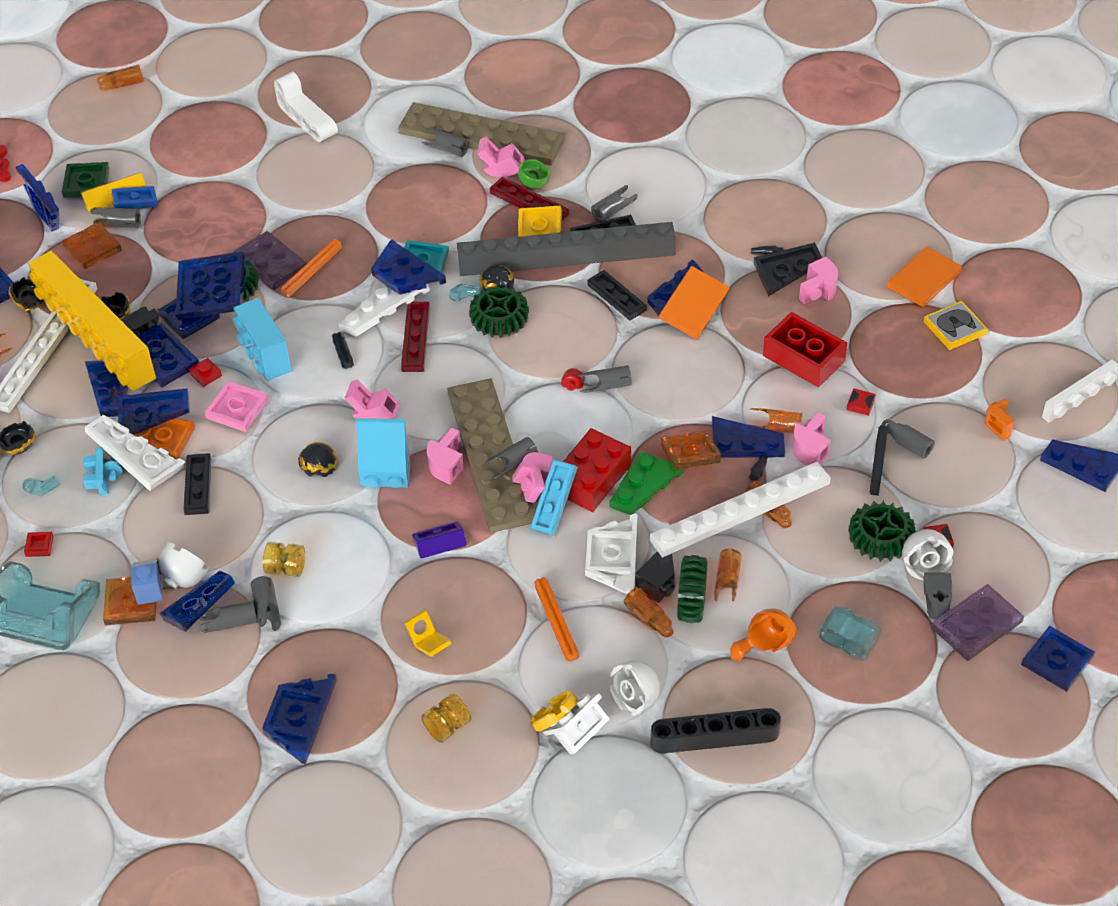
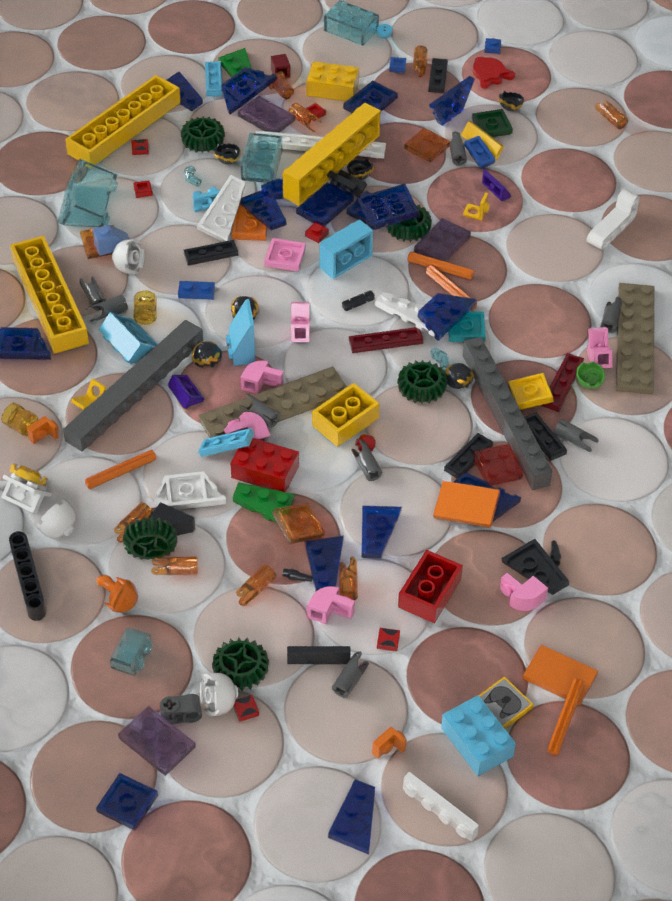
camera: 75 degrees right, 0 degrees up
(49, 400) = (261, 158): none -> clear light blue brick
(54, 155) = (510, 101): none -> black hair
(195, 603) = (99, 271): clear blue wing -> none
(197, 196) = (495, 186): none -> dark purple slope
(217, 663) = (49, 294): none -> yellow brick
(234, 215) = (482, 209): none -> yellow bracket
(262, 506) = (196, 290): none -> blue plate
(335, 584) = (127, 337): none -> medium azure slope
(346, 266) = (447, 284): none -> orange axle
(386, 508) = (206, 354): none -> black hair
(421, 588) = (132, 386): none -> dark grey brick
(468, 692) = (41, 428): none -> orange bracket
(536, 382) = (345, 414): none -> yellow brick
(639, 271) = (498, 464): none -> clear red plate
(705, 386) = (377, 529): none -> clear blue wing
(739, 509) = (236, 560): white plate -> none
(980, 278) = (565, 716): none -> orange axle
(998, 346) = (478, 735): none -> medium azure brick

